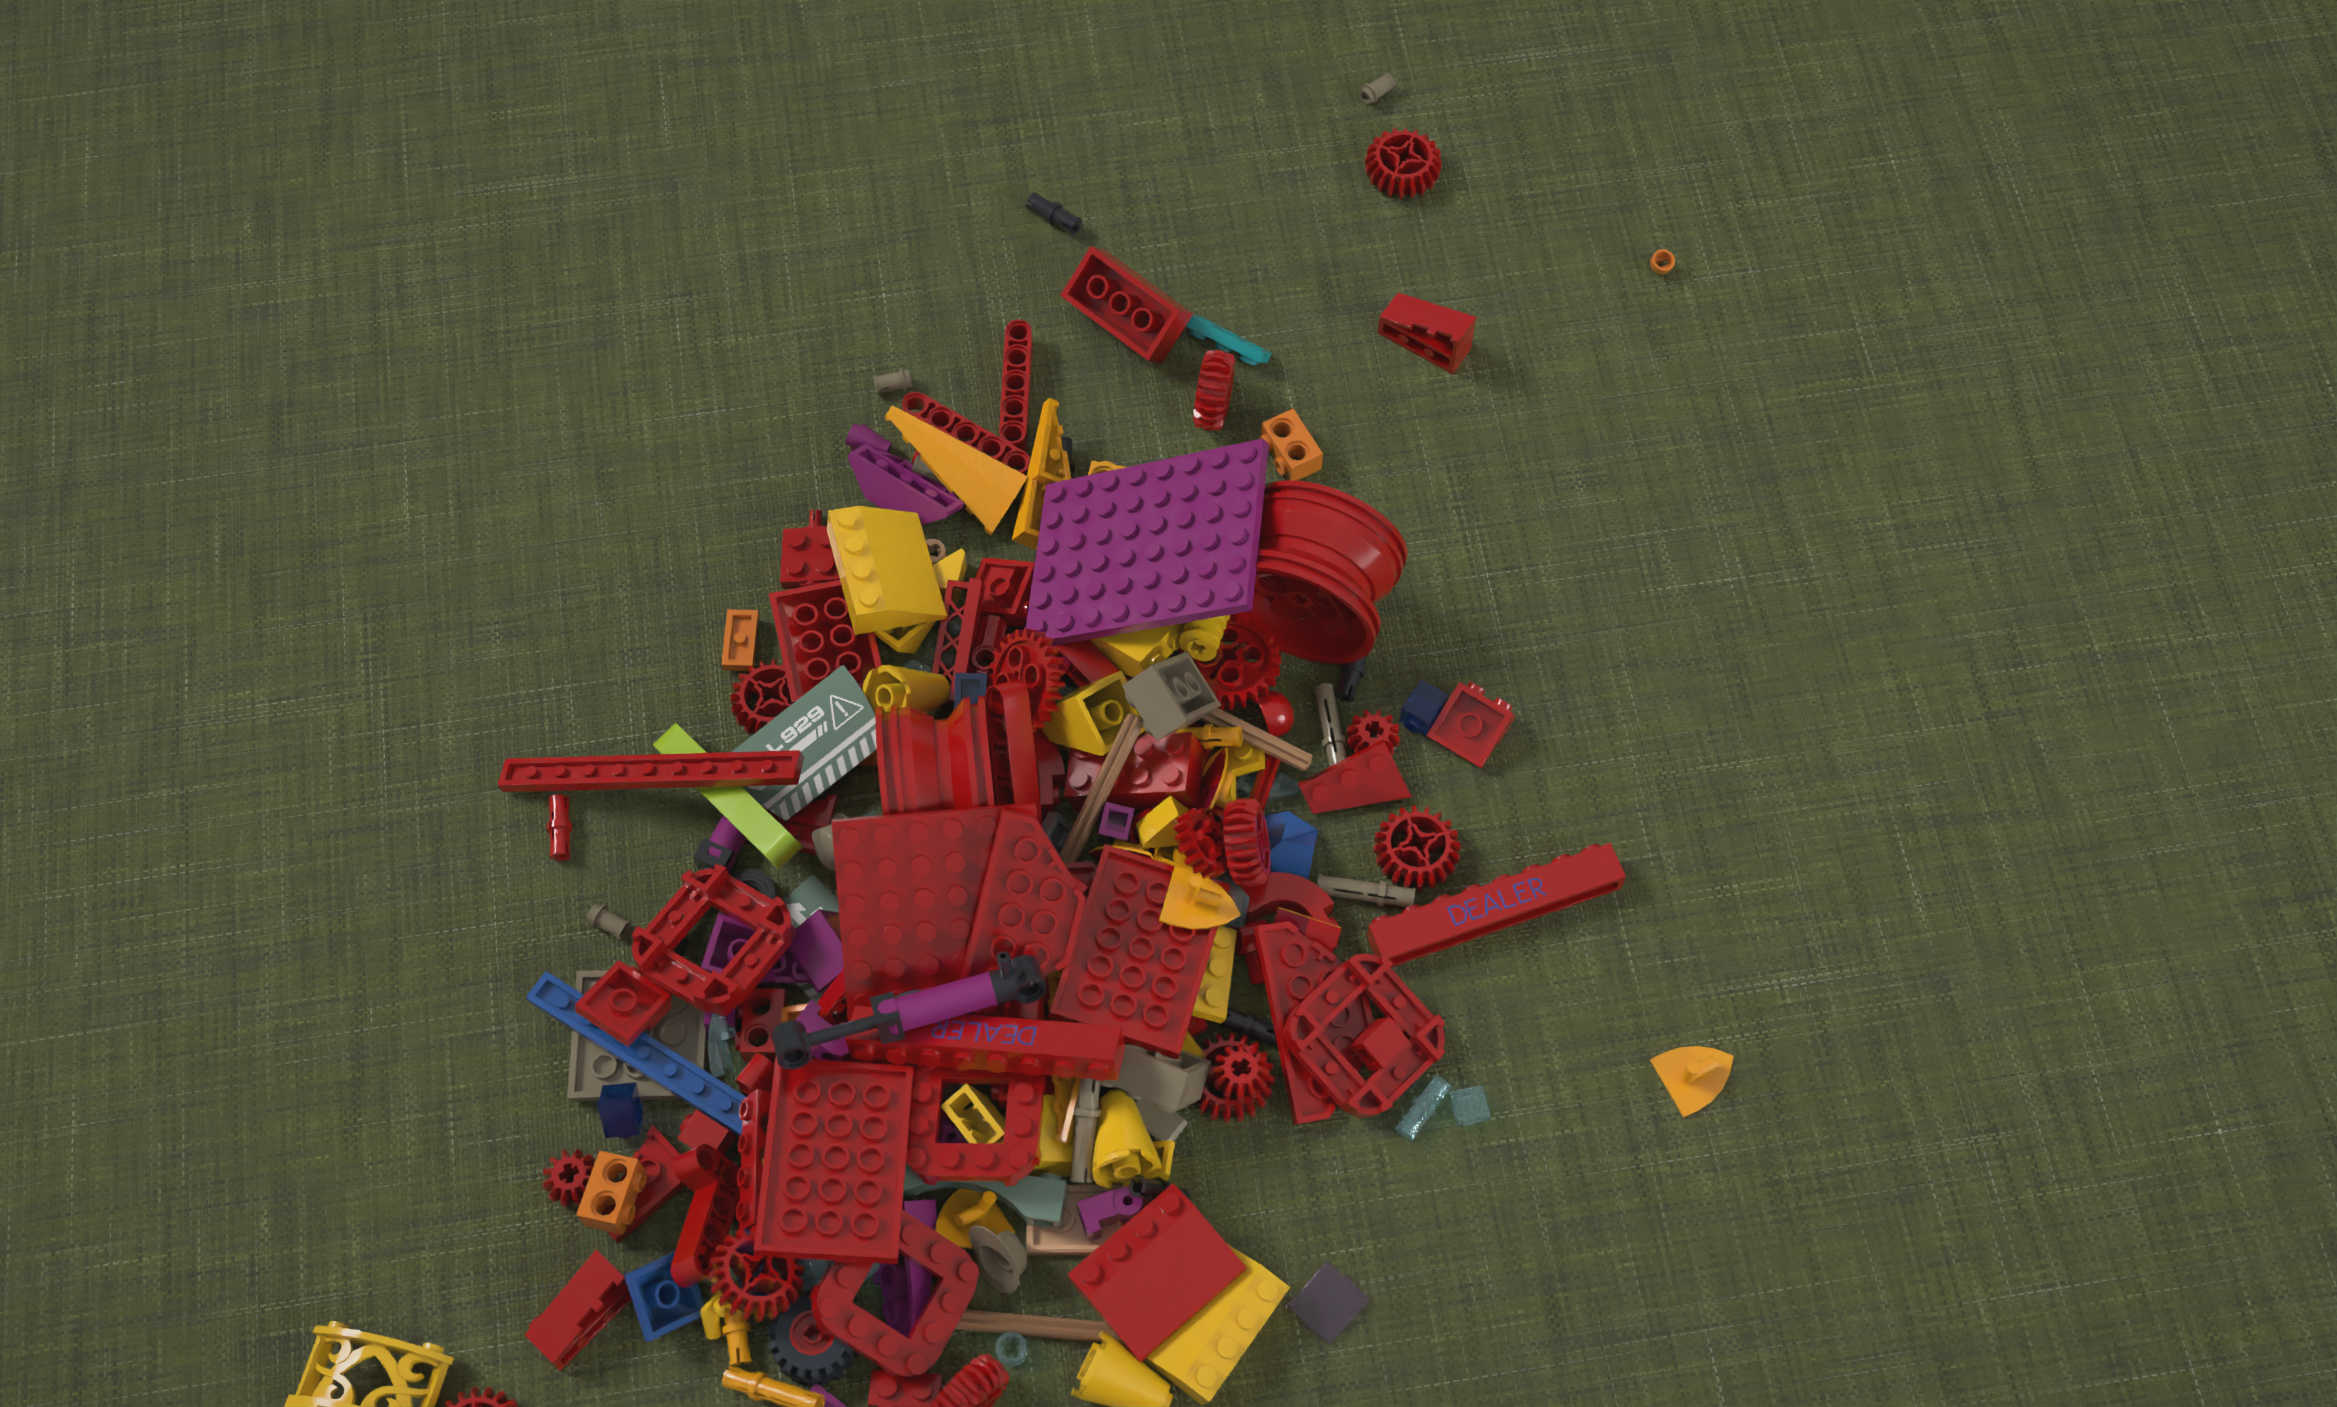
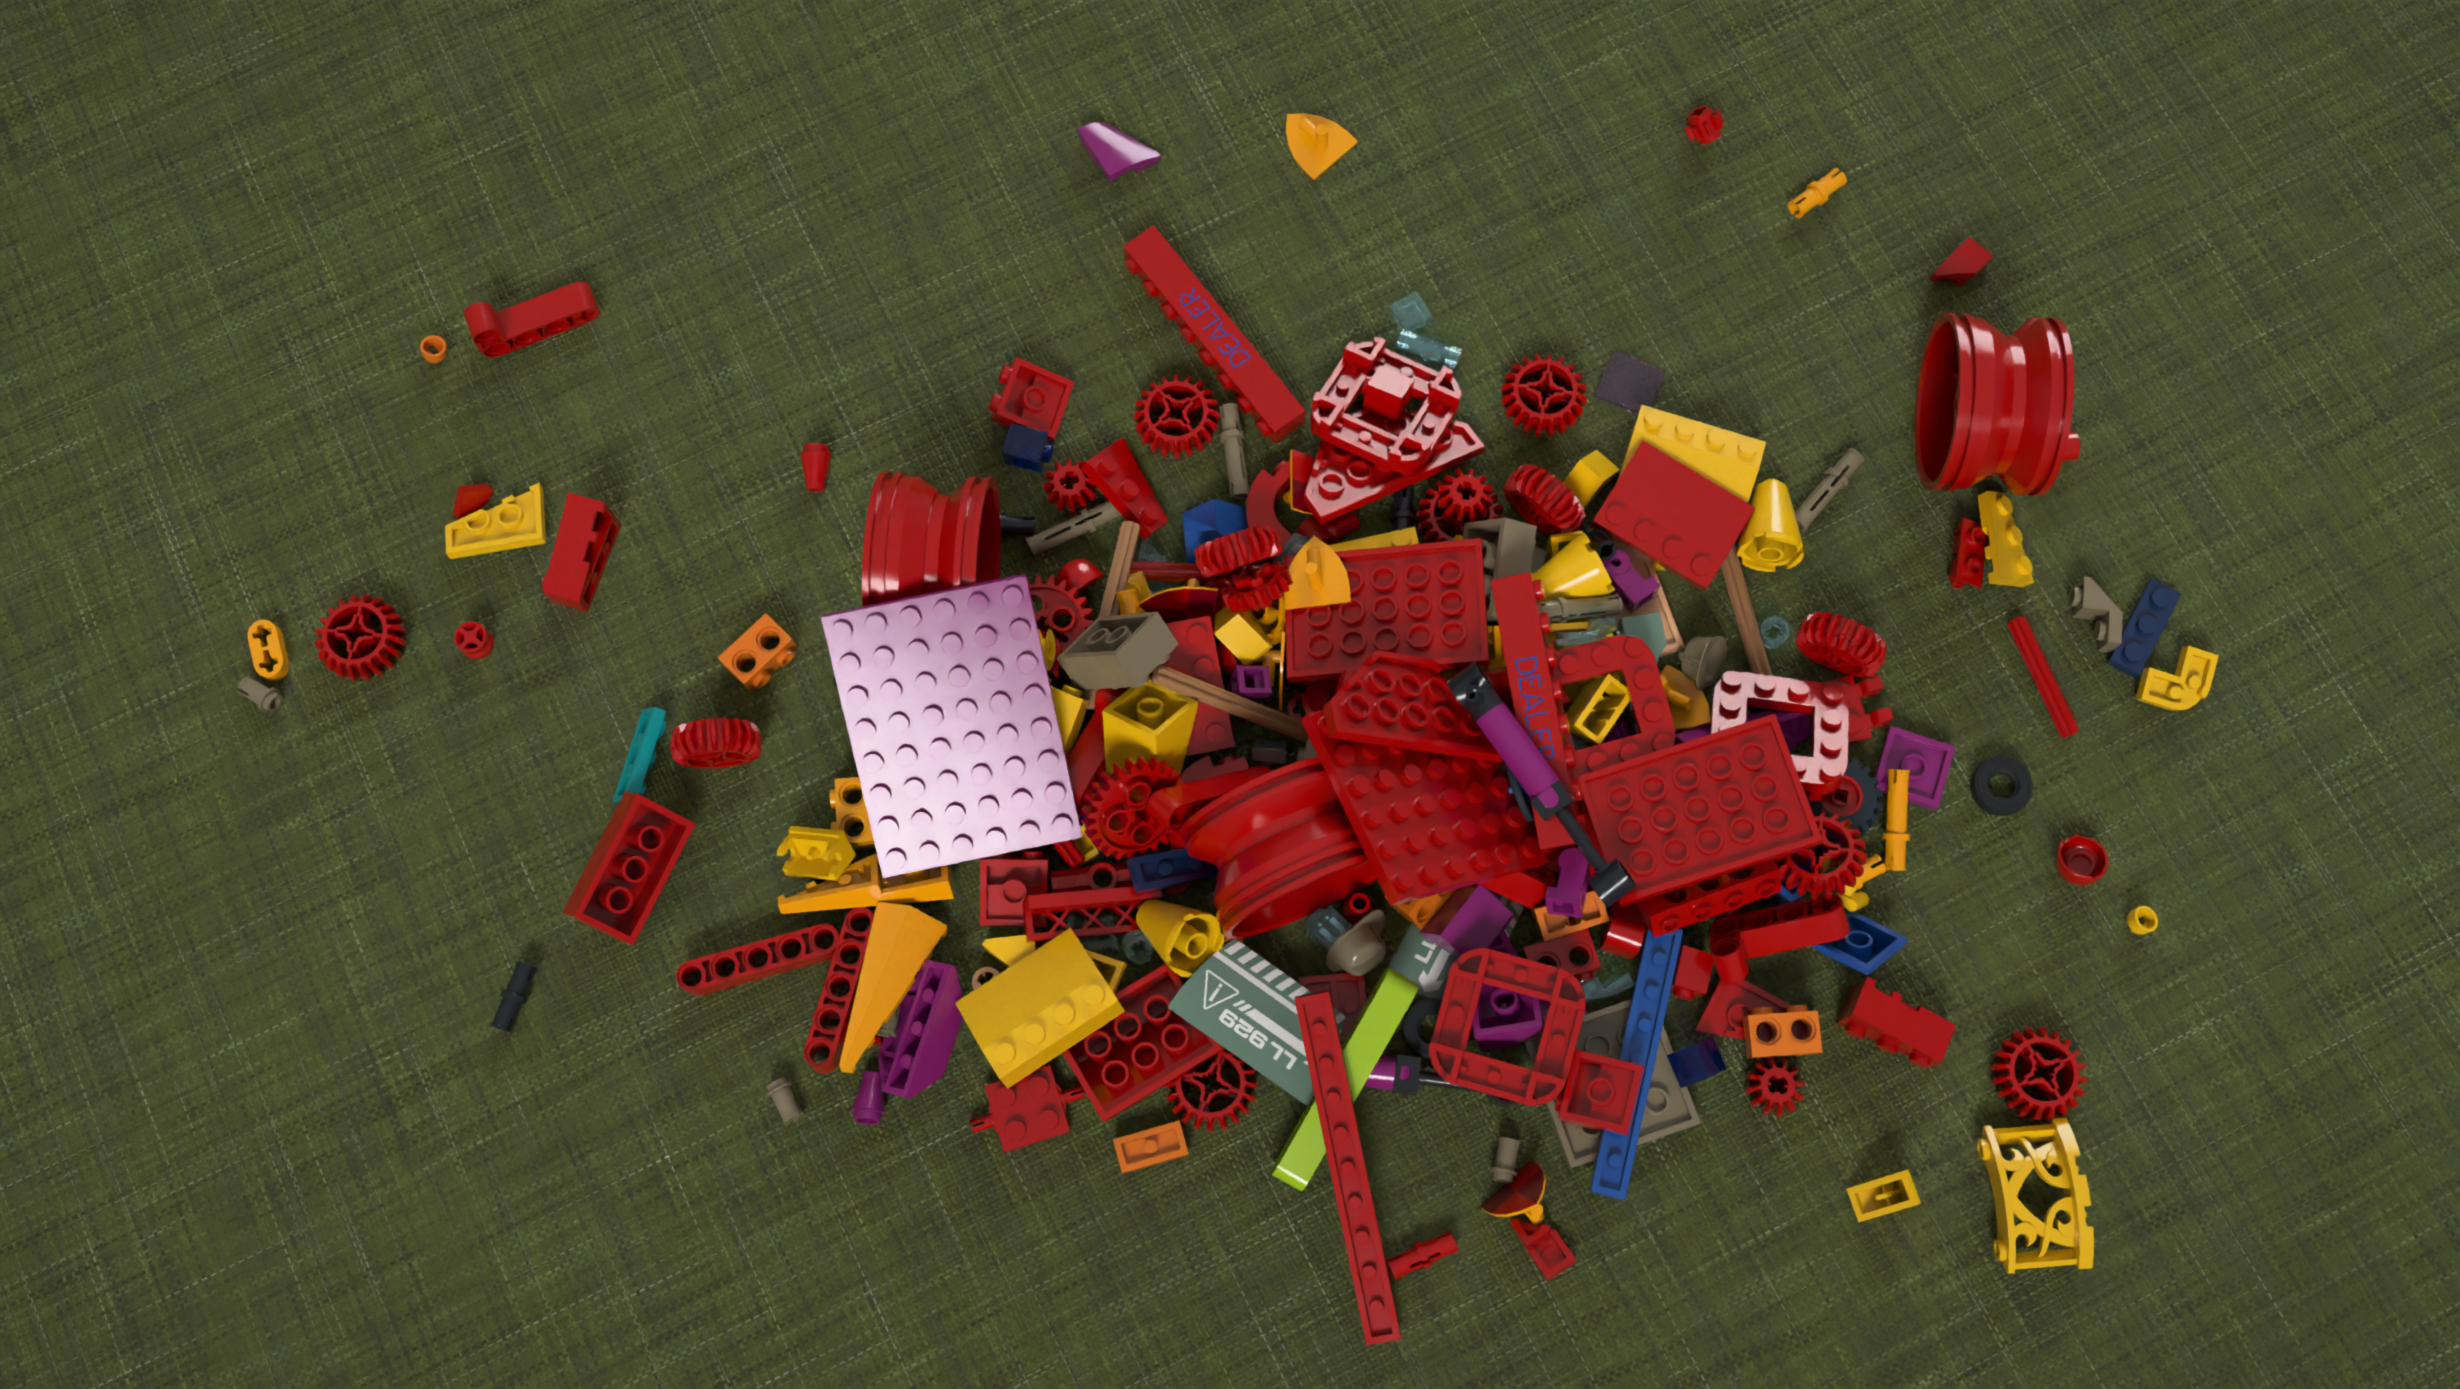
camera: 105 degrees left, 10 degrees up
(433, 1242) = (1883, 1196): none -> yellow slope
(523, 932) = (1544, 1247): none -> red slope
(569, 913) = (1520, 1196): none -> shield
(1049, 1121) = (1597, 627): none -> clear light blue slope
(1087, 442) = (816, 853): none -> yellow hinge
(1215, 1154) = (1543, 500): none -> red gear
(1233, 1219) = (1590, 477): none -> yellow slope
(1348, 1209) = (1569, 395): none -> red gear
(1376, 235) = (468, 634): none -> red wheel
(1415, 101) = (260, 651): none -> light orange beam
(1459, 531) = (815, 465): none -> red cone
(1474, 280) = (508, 526): none -> yellow wing
(1508, 264) = (471, 499): none -> red tile
(1669, 336) = (531, 320): none -> red beam
(1727, 873) = (1114, 150): none -> magenta slope

